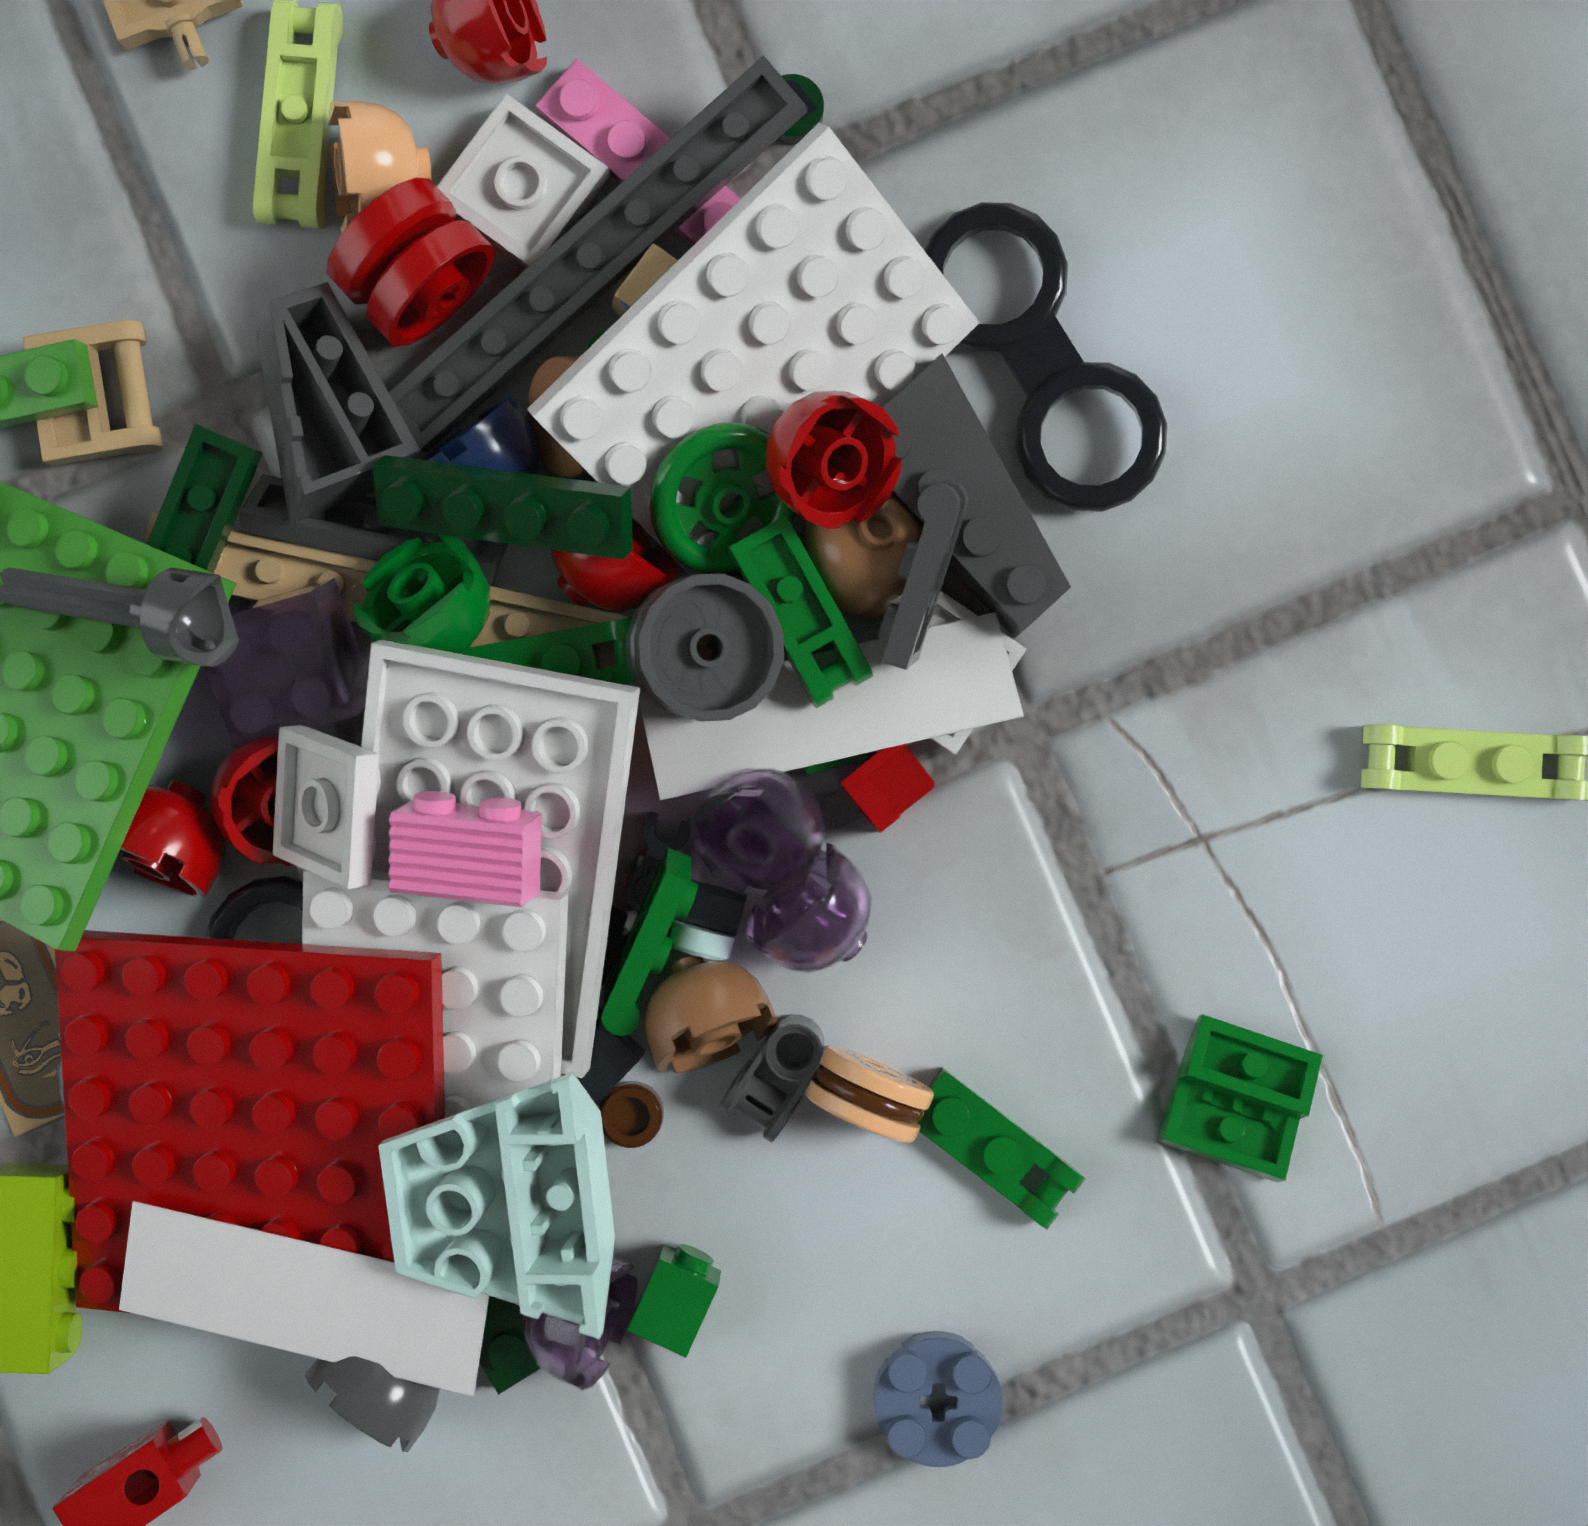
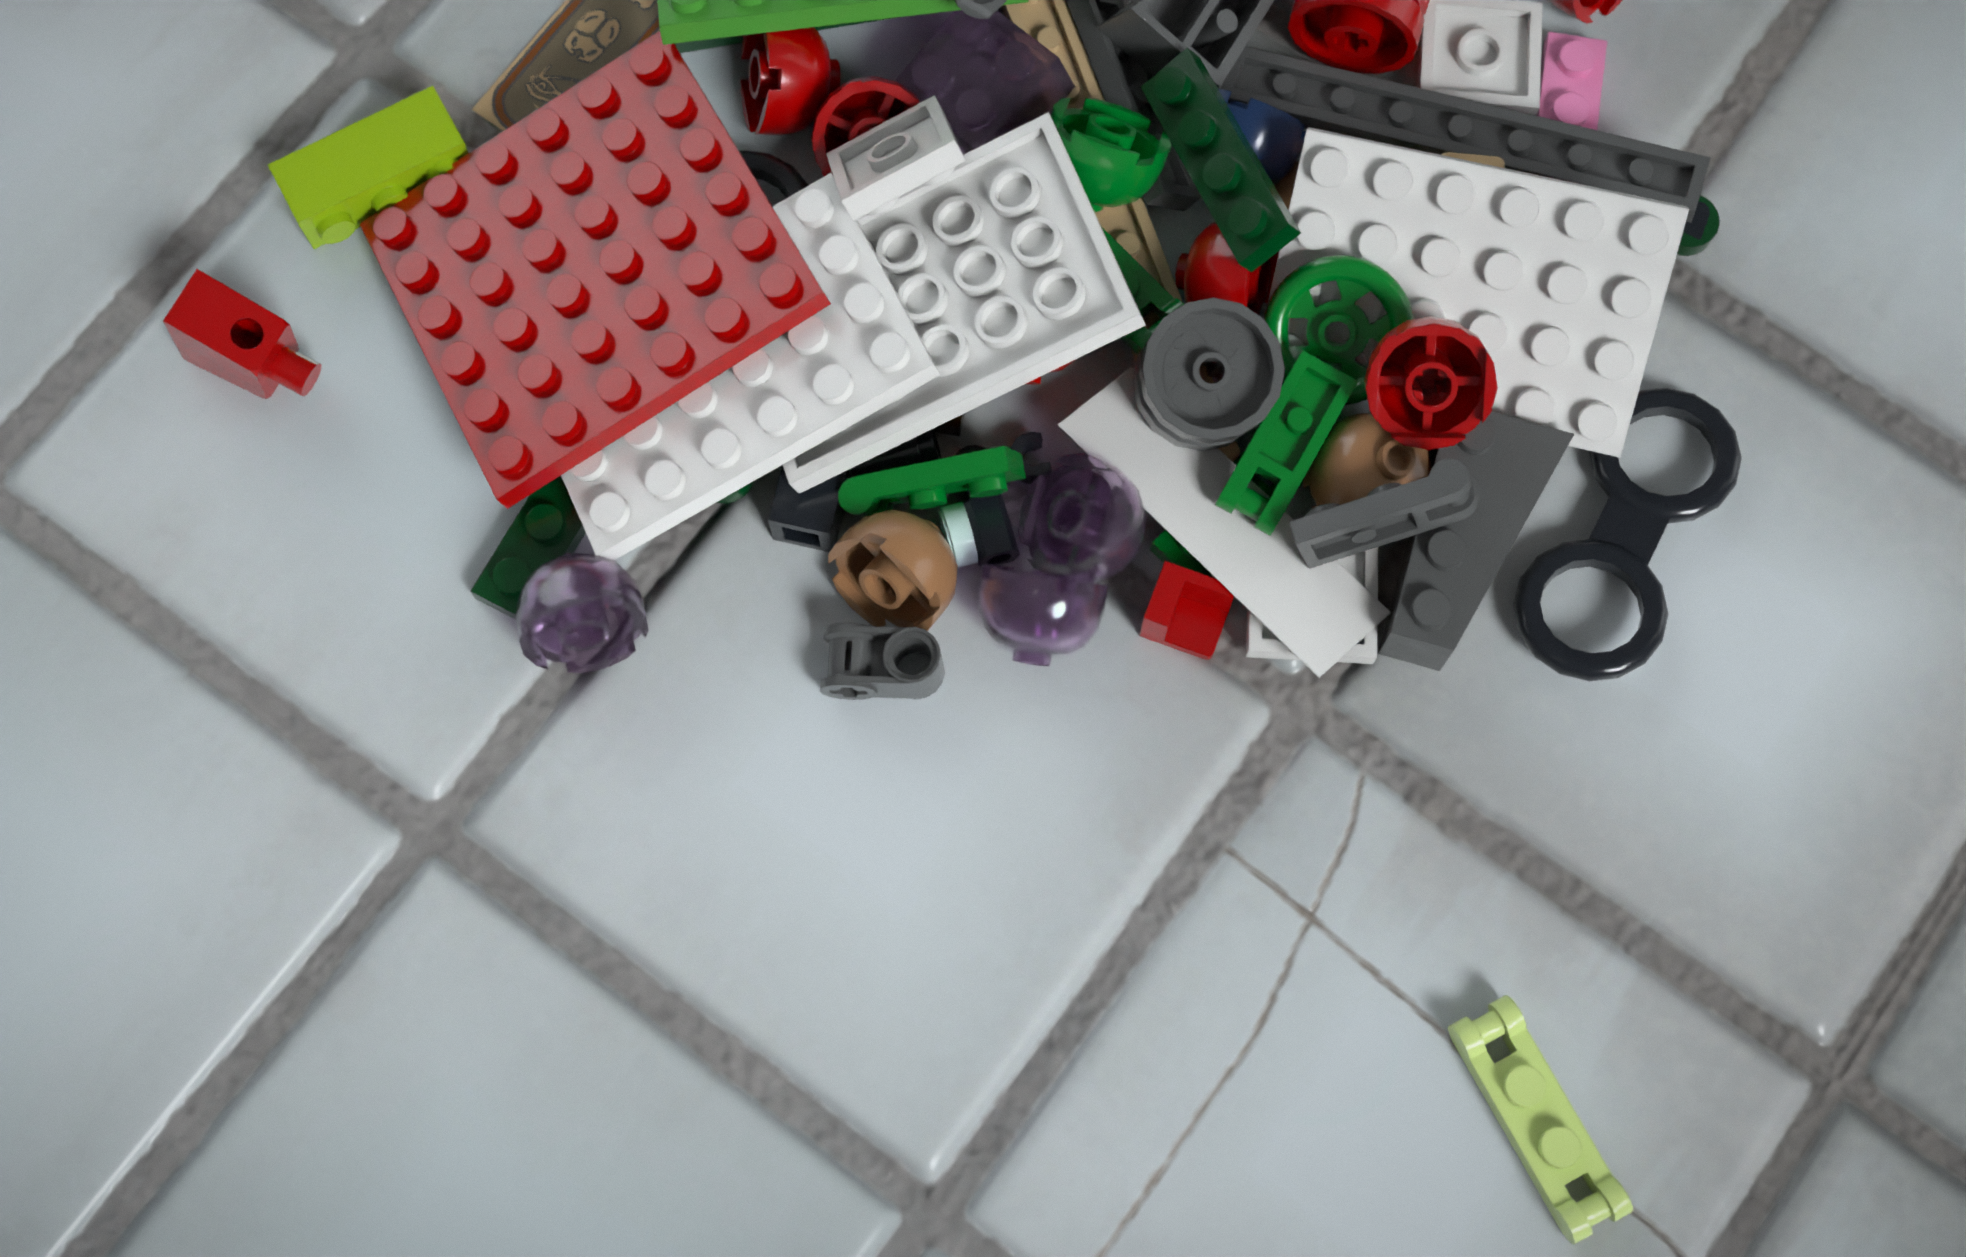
camera: 60 degrees right, 15 degrees down
(299, 1298) = (477, 374): white sticker -> none
(376, 1399) = (433, 481): dark grey cylinder -> none
(465, 850) = (927, 271): bright pink brick -> none
(508, 1203) = (661, 467): light aqua wedge -> none
(631, 1114) = (773, 568): reddish brown tile -> none
(675, 1298) = (638, 687): green brick -> none
(869, 1094) = (914, 740): light nougat head -> none
(962, 1428) = (637, 958): sand blue plate -> none
(996, 1148) = (927, 887): green plate -> none
(1240, 1098) = (1103, 1083): green slope -> none

